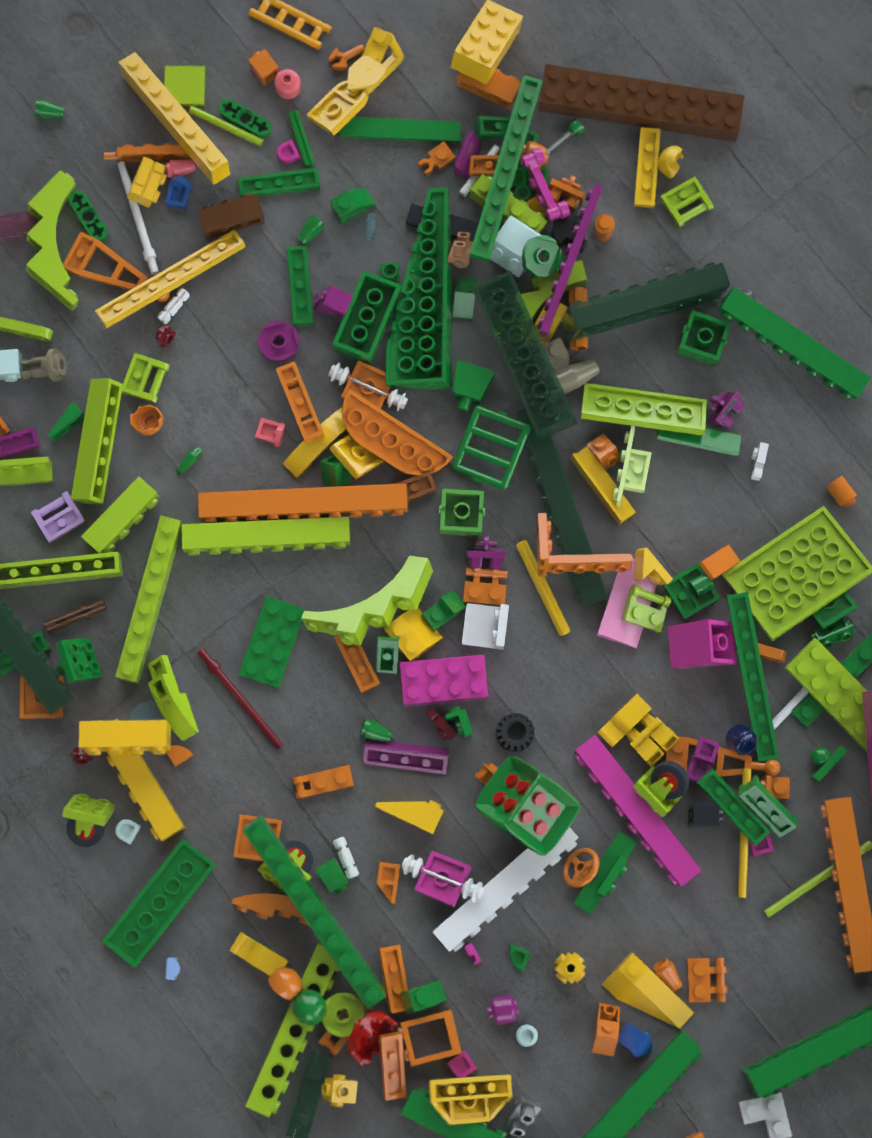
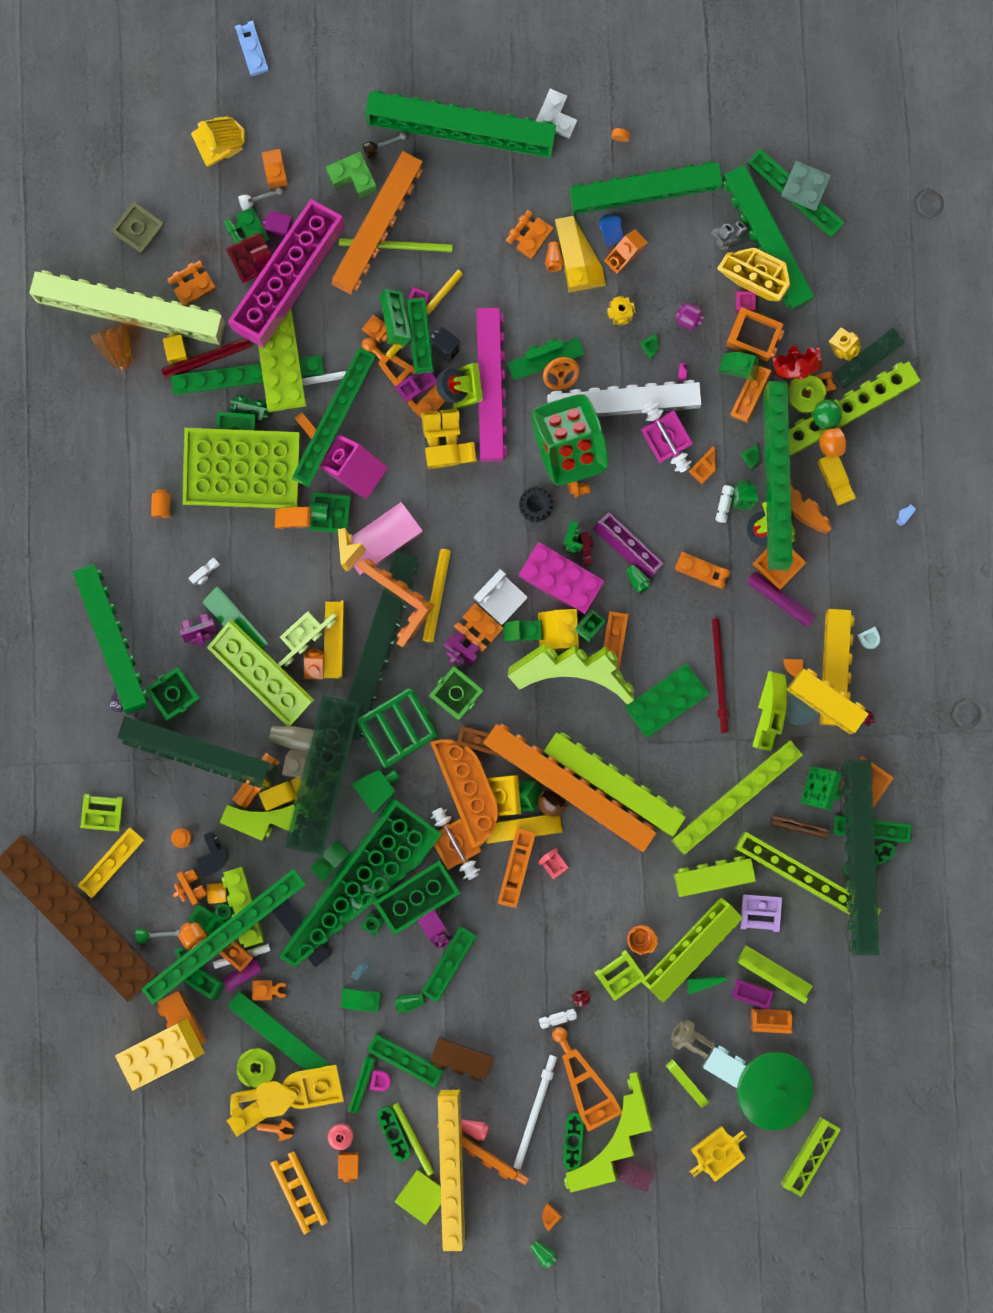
camera: 145 degrees left, 5 degrees up
(64, 144) = (550, 1216): none -> orange tile
(87, 819) = (893, 666): lime plate -> none
(146, 182) = (508, 1134): yellow brick -> none
(159, 903) = (882, 568): green plate -> none
(170, 279) = (545, 1040): yellow tile -> none
(178, 192) = (489, 1109): blue tile -> none
(188, 460) = (631, 885): green bar -> none
(232, 807) = (781, 599): none -> magenta slope
(274, 352) = (487, 935): magenta plate -> none
(309, 477) = (551, 804): none -> reddish brown hair
(352, 921) = (751, 456): none -> green tile
(392, 1066) = (796, 334): orange plate -> none
(393, 81) = (256, 1056): none -> lime plate
(418, 813) = (650, 497): yellow slope -> none
(461, 250) = (305, 899): nougat hips -> none
(510, 243) = (261, 870): light aqua slope -> none
(526, 1035) = (685, 288): light aqua plate -> none
(530, 258) = (257, 852): green plate -> none
(537, 182) = (206, 911): dark pink plate -> none
(566, 268) = (224, 831): magenta plate -> none
(642, 614) = (377, 519): lime plate -> none
(668, 161) = (91, 855): yellow hair -> none
(741, 739) = (376, 379): clear blue head -> none
(825, 761) = (327, 321): green tile -> none

